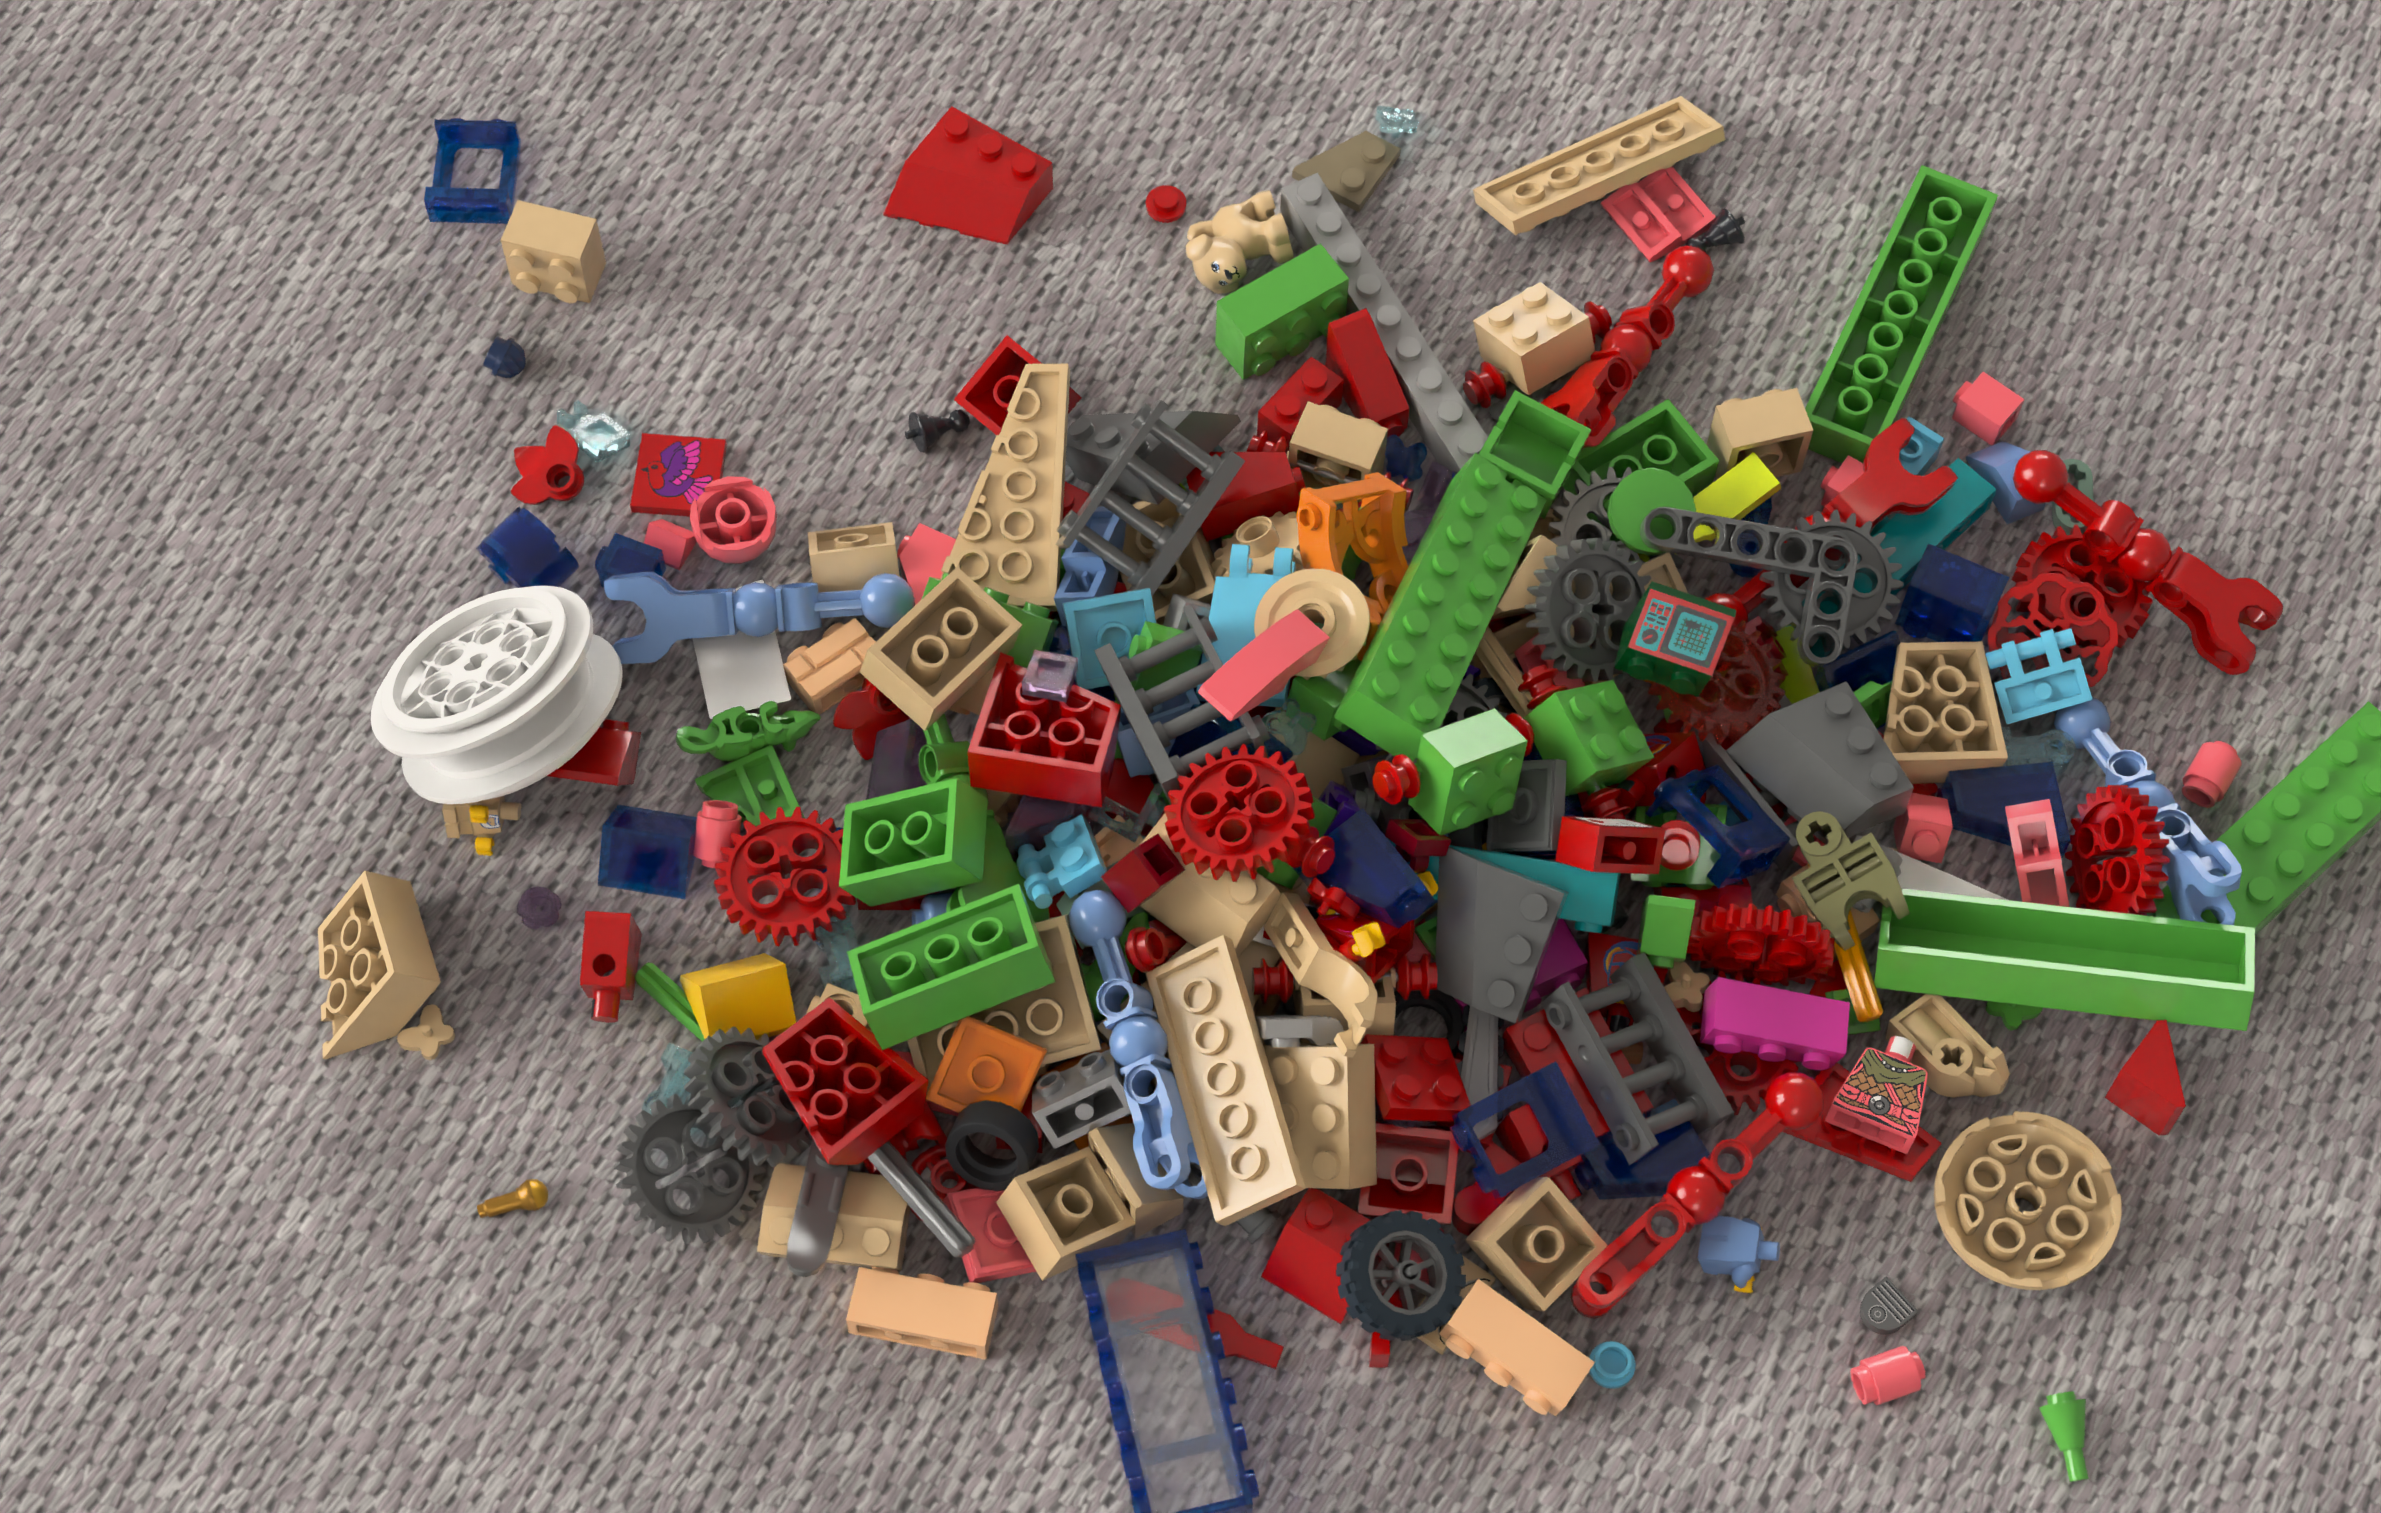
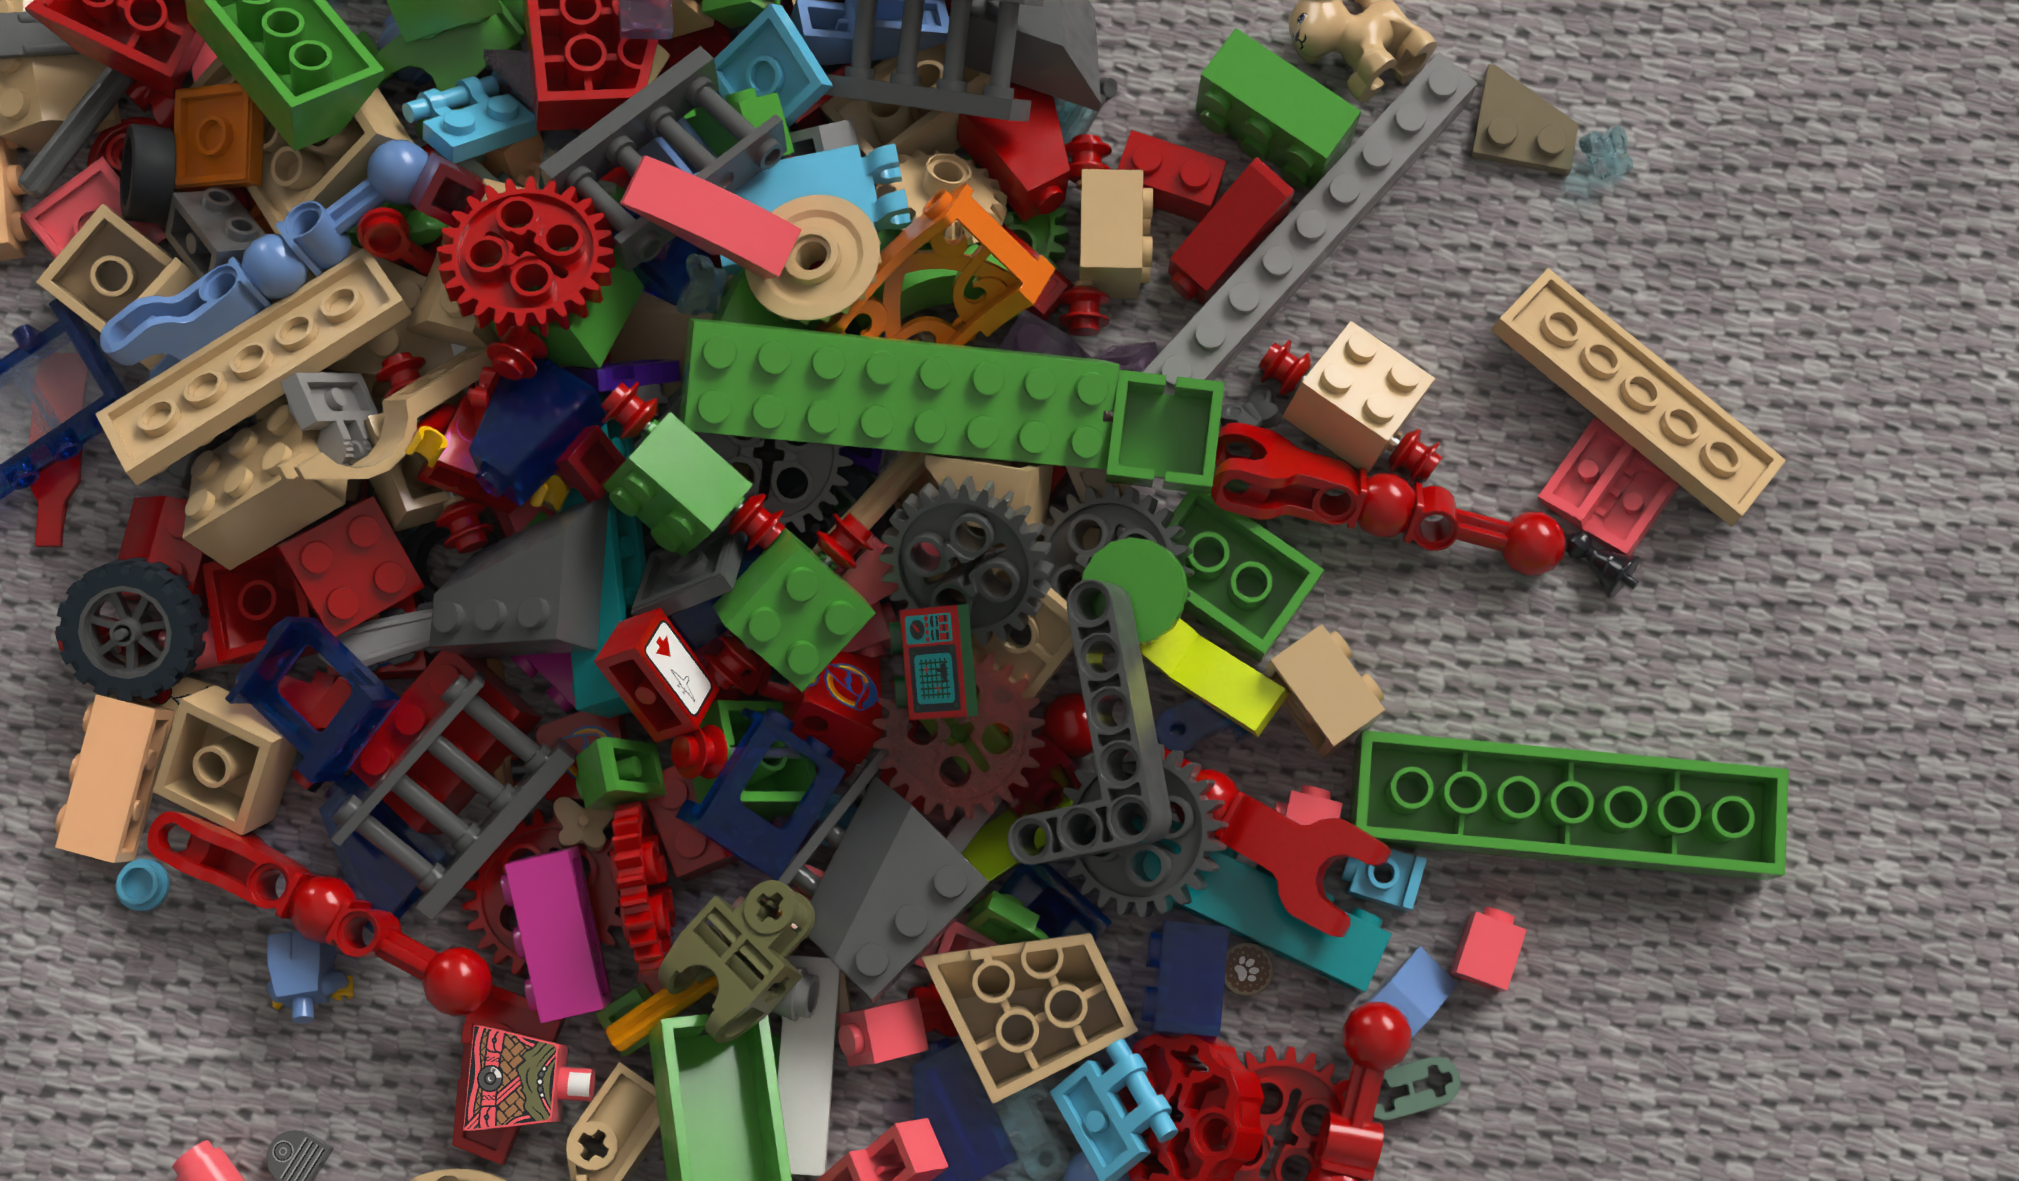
camera: 75 degrees right, 15 degrees up
(1405, 460) = (1152, 312): clear blue piece -> none

